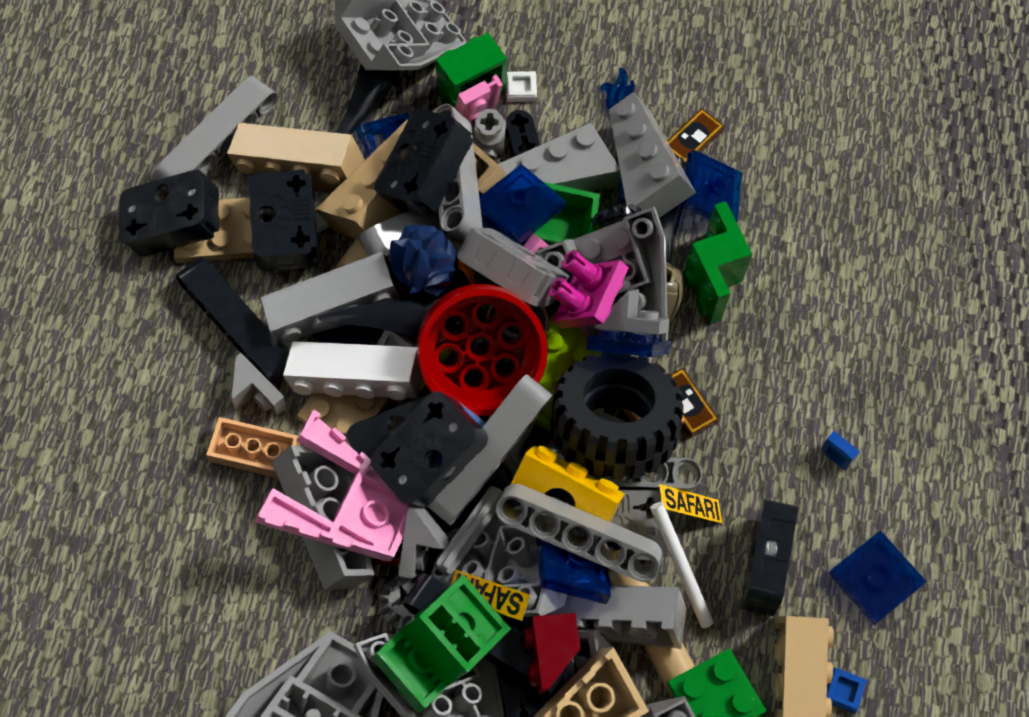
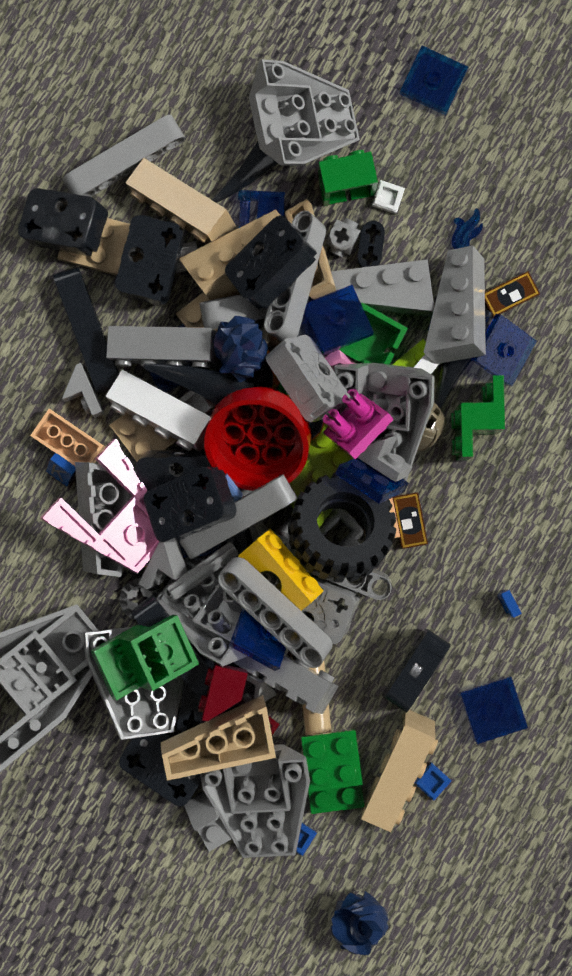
camera: 20 degrees right, 20 degrees up
(256, 481) = (61, 469): none -> blue tile
(478, 98) = (339, 208): bright pink plate -> none
(501, 598) = (195, 633): yellow sticker -> none
(613, 215) = (410, 359): black gear -> none
(681, 564) = (347, 651): white bar -> none
(690, 503) = (374, 608): sticker -> none

